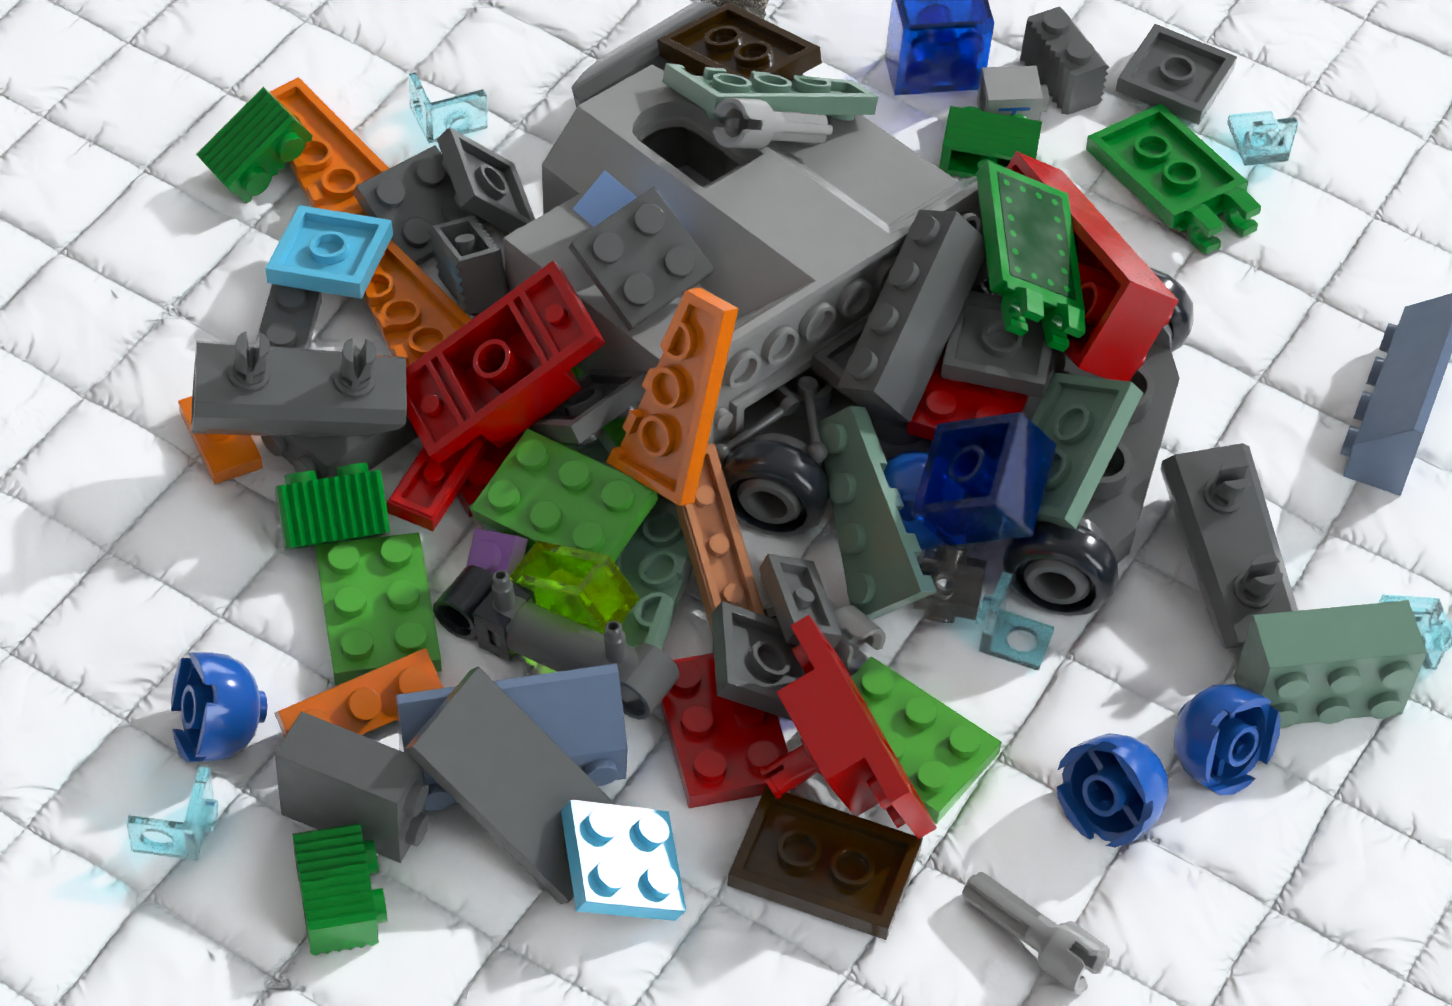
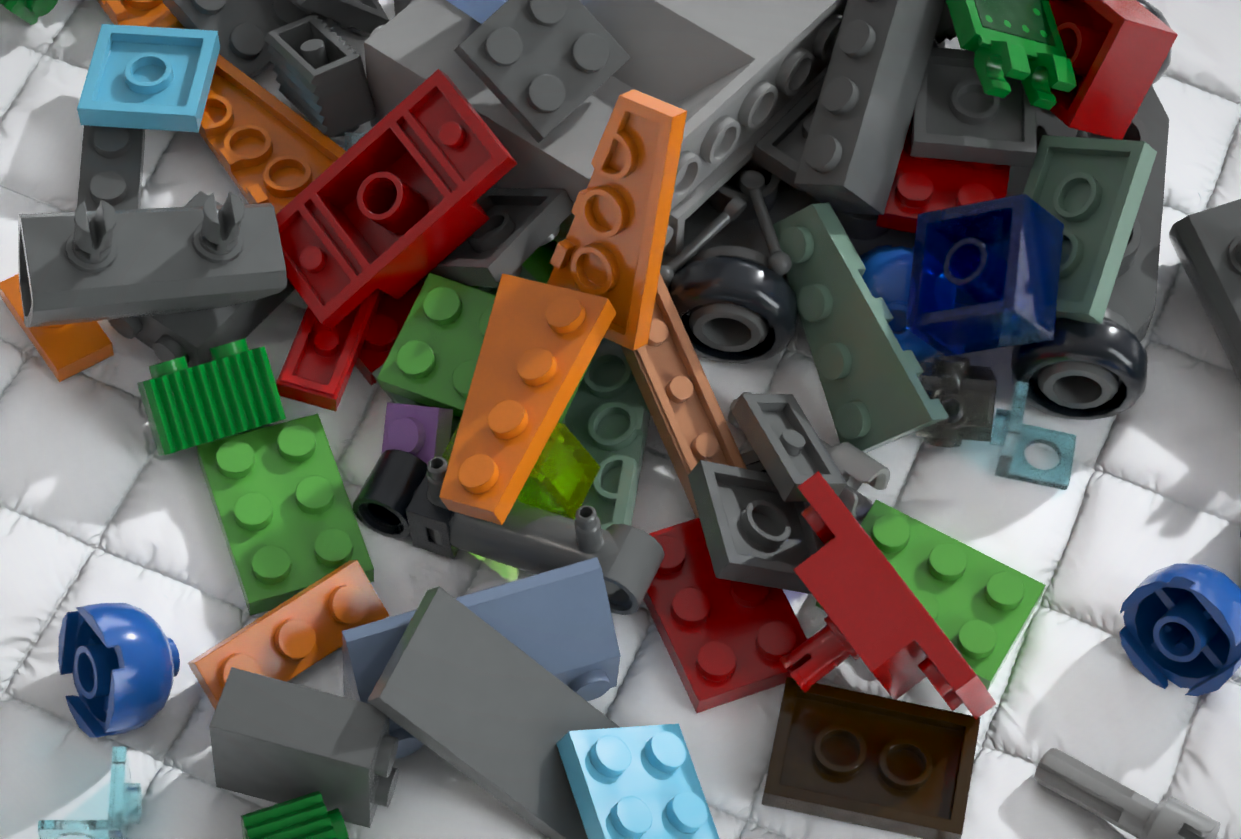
camera: 10 degrees left, 5 degrees up
(581, 521) = (521, 384): none -> orange wing

